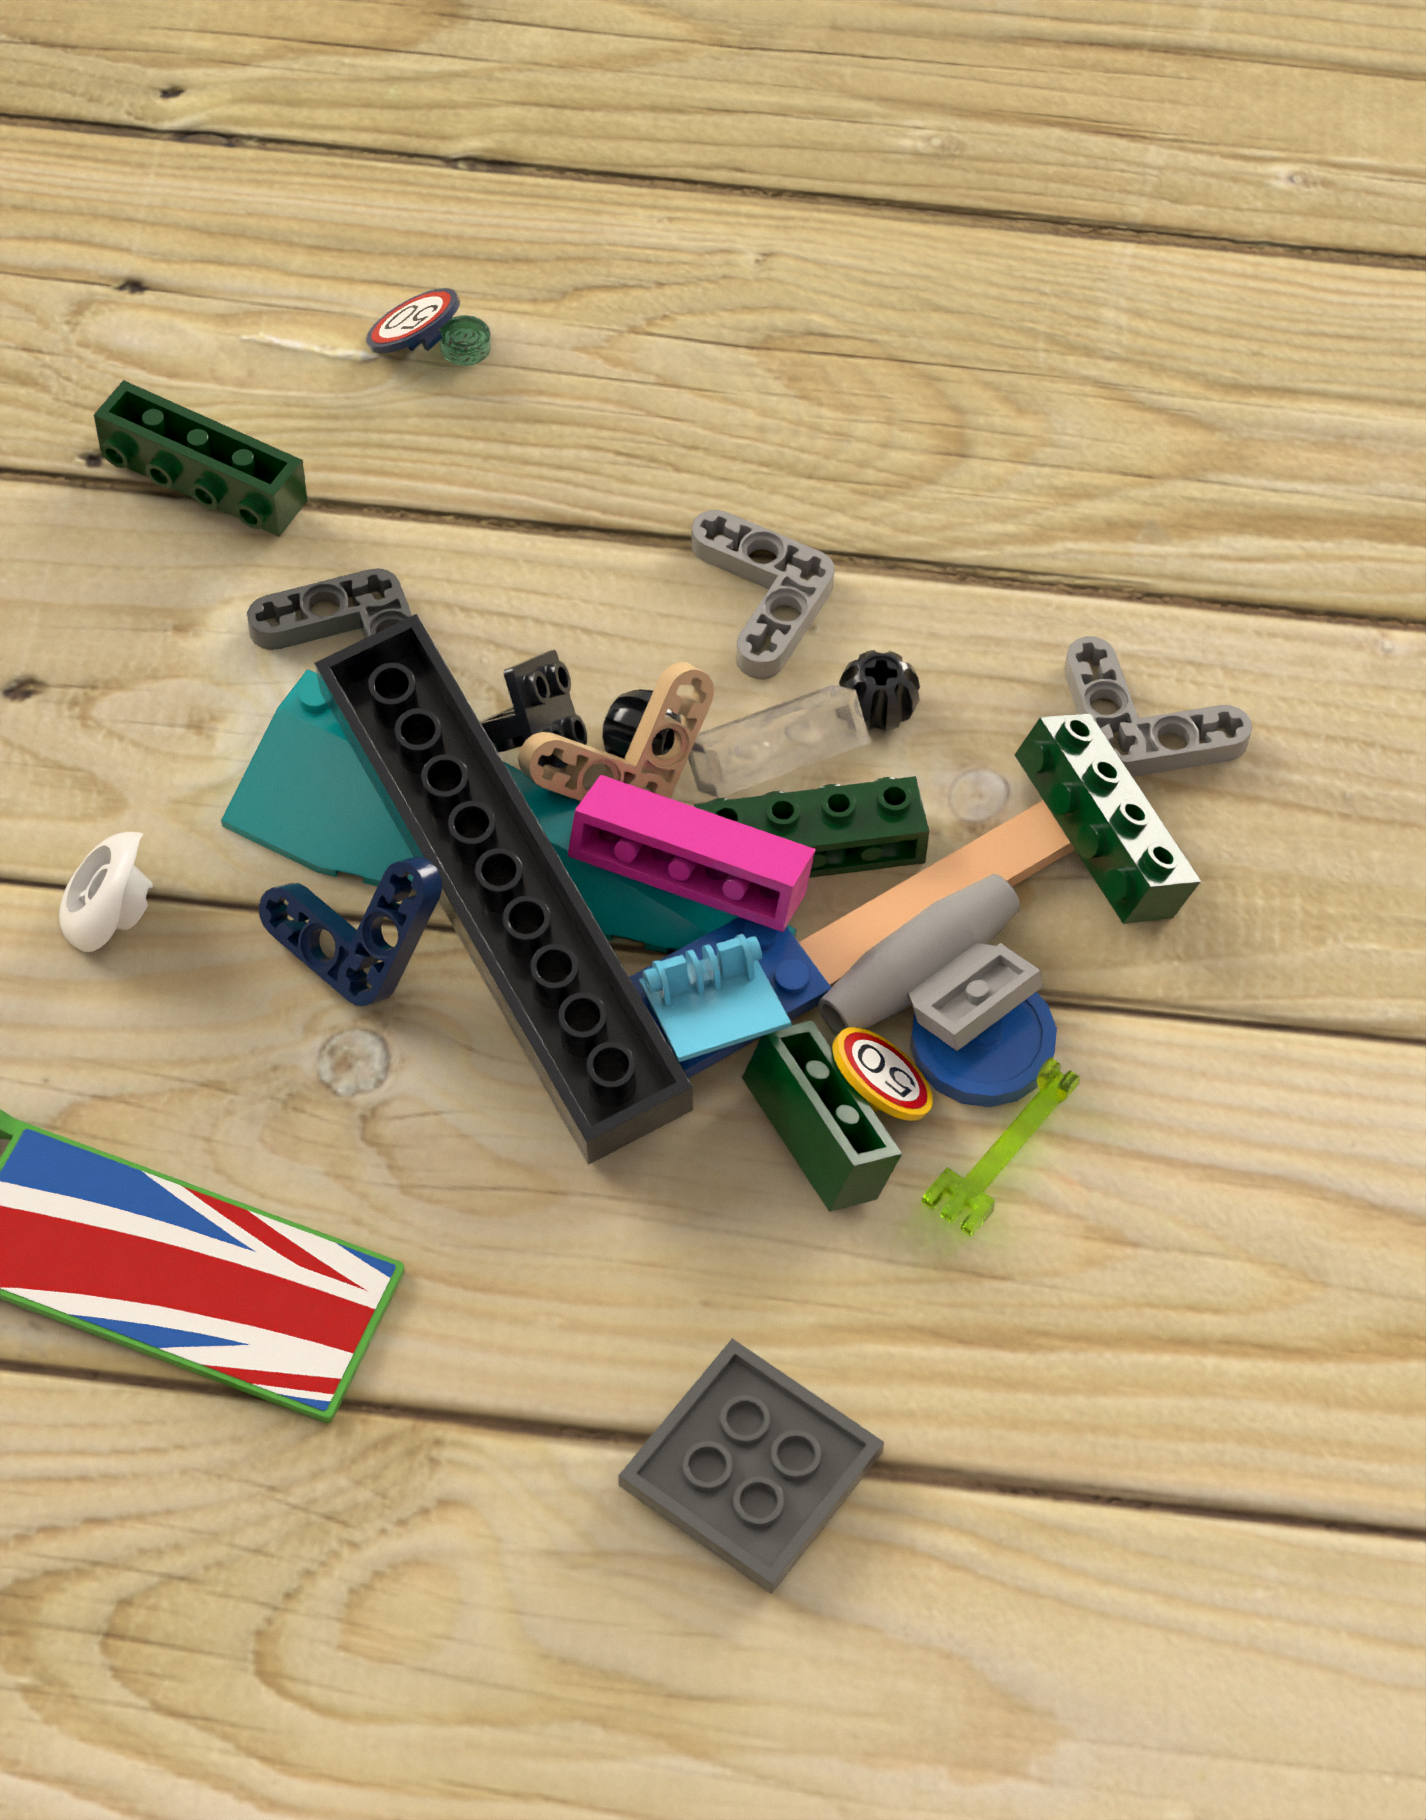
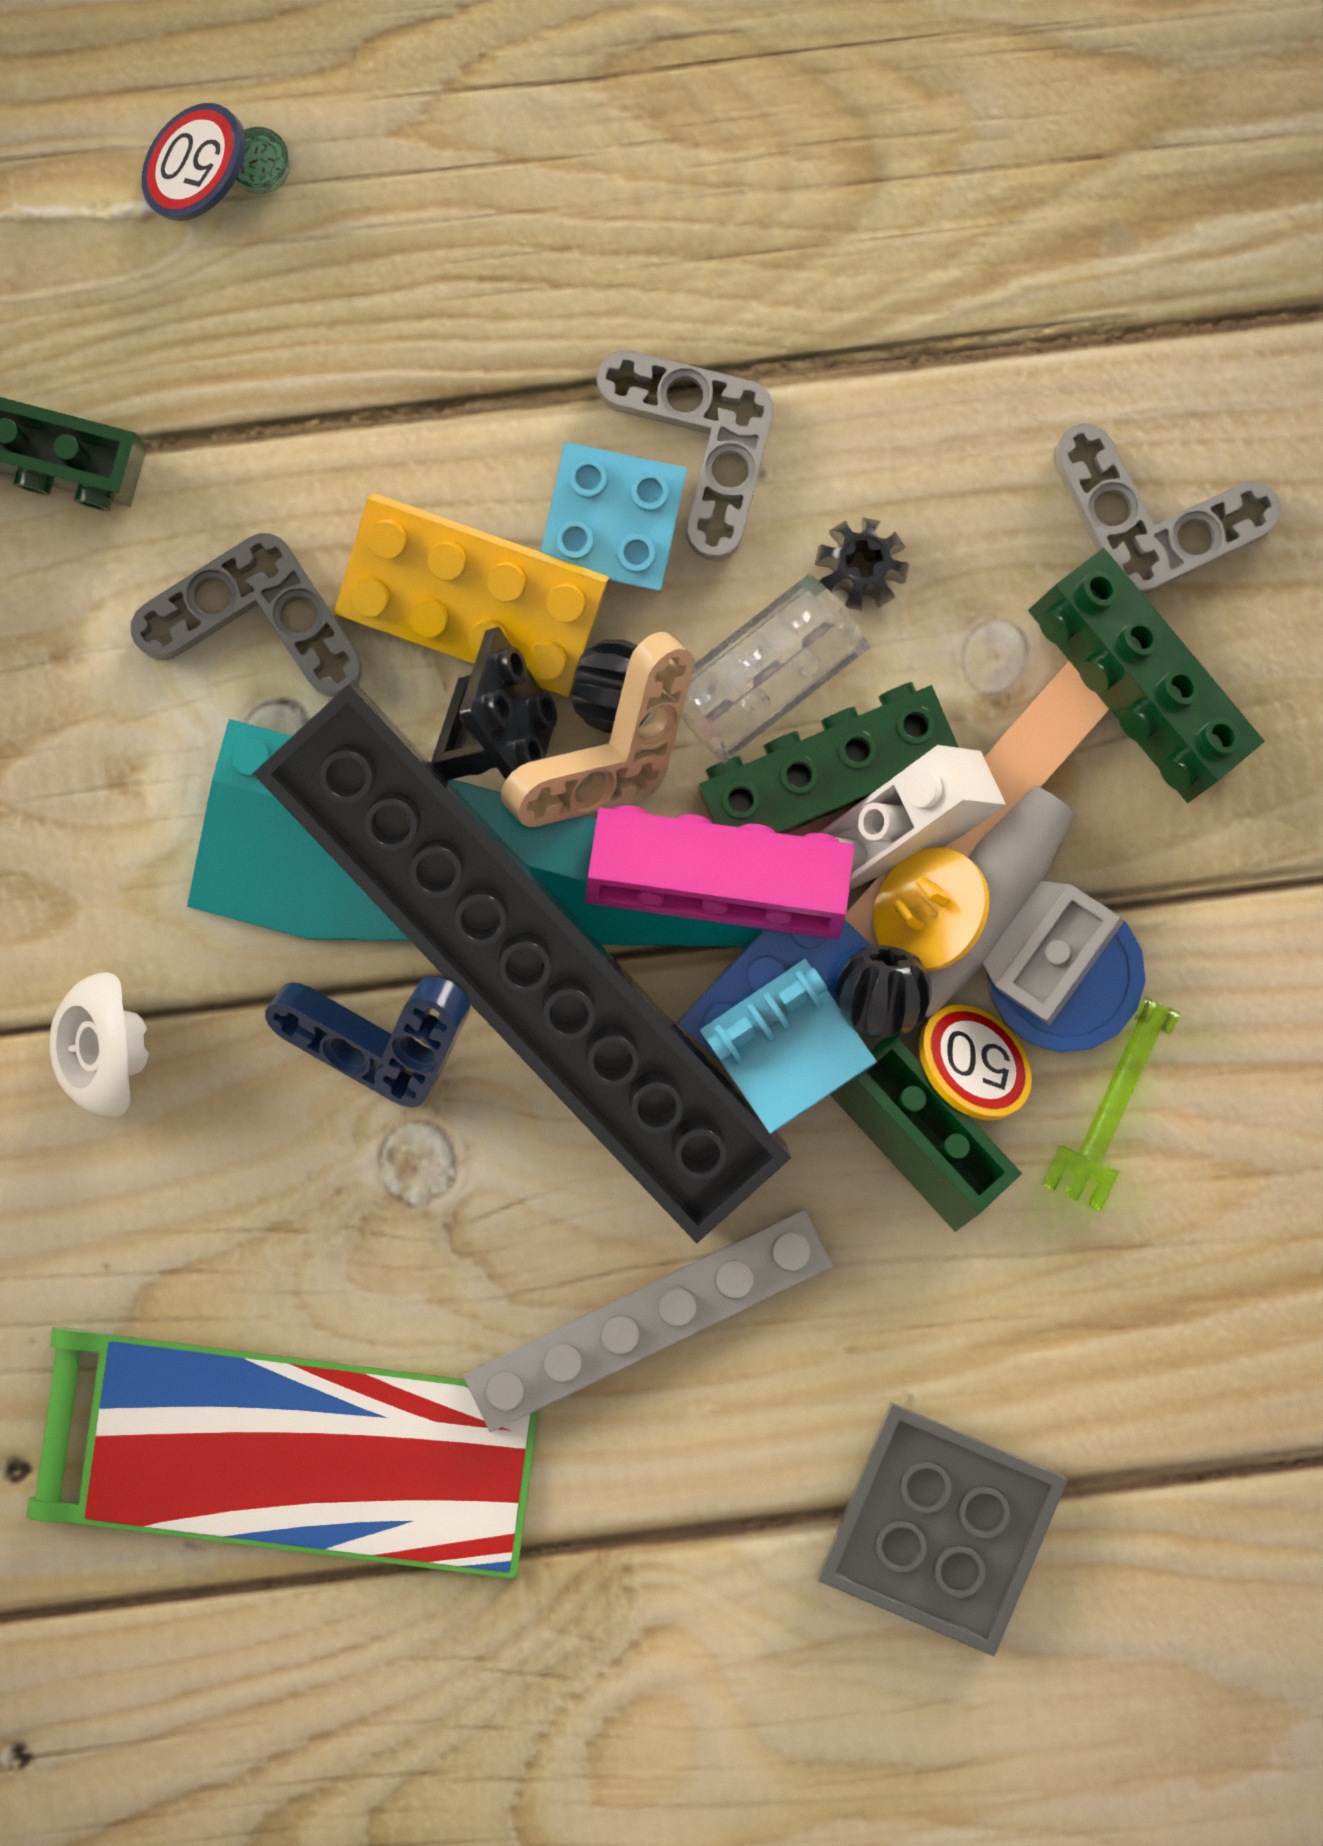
camera: 15 degrees left, 30 degrees up
(508, 616) = (453, 583): none -> yellow plate
(521, 1224) = (647, 1320): none -> light grey plate
(676, 611) = (614, 514): none -> medium azure hinge
(812, 972) = (883, 991): none -> black piece
(872, 937) = (932, 907): none -> yellow piece
(877, 869) = (918, 810): none -> white slope

